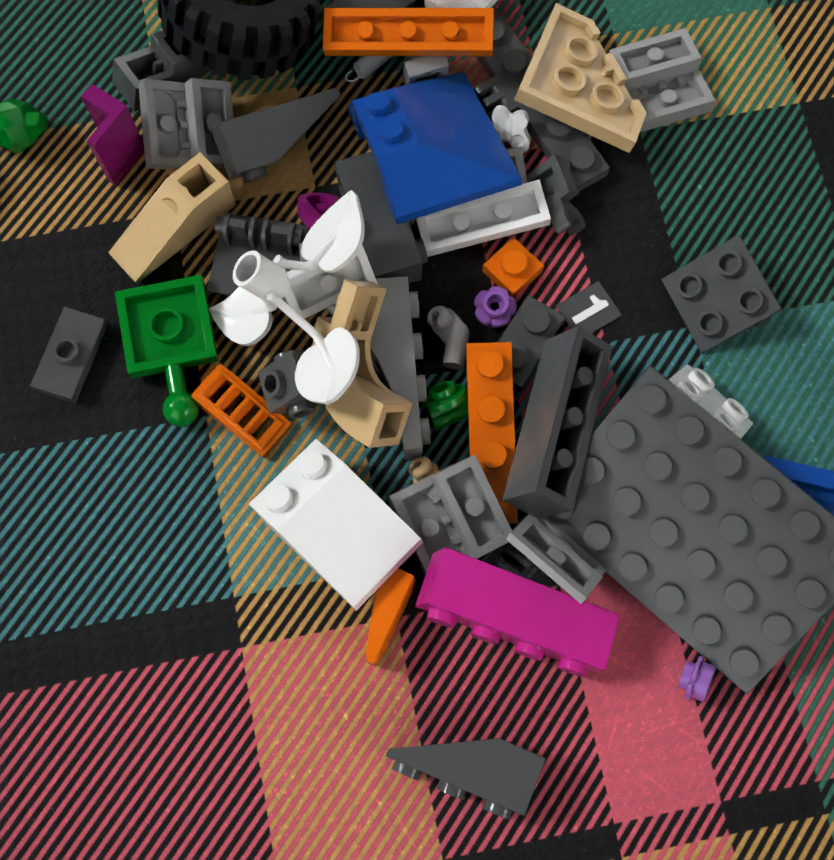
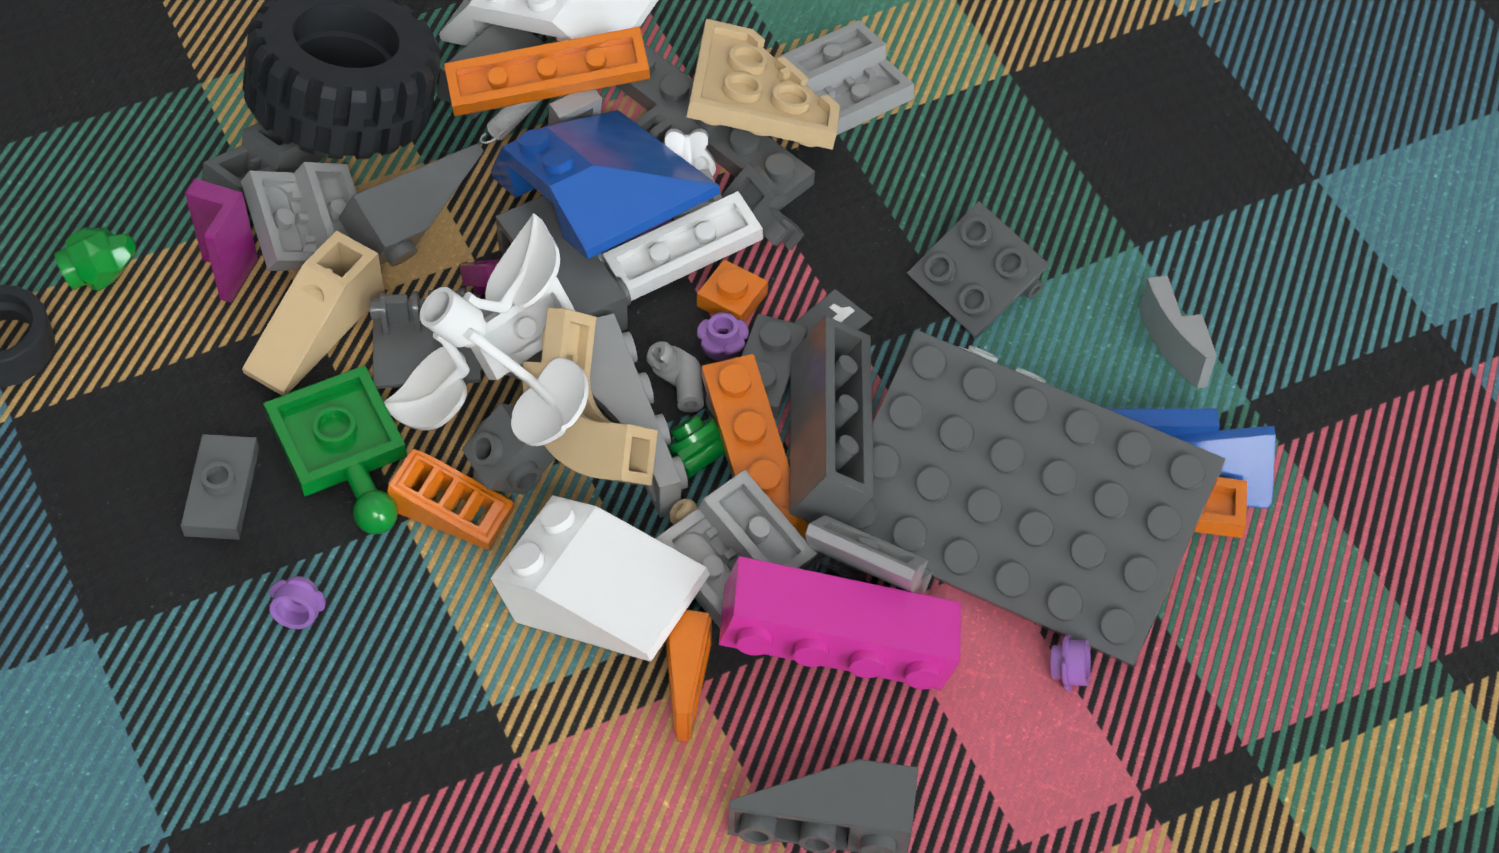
camera: 15 degrees left, 20 degrees down
(102, 474) = (296, 602): none -> medium lavender plate

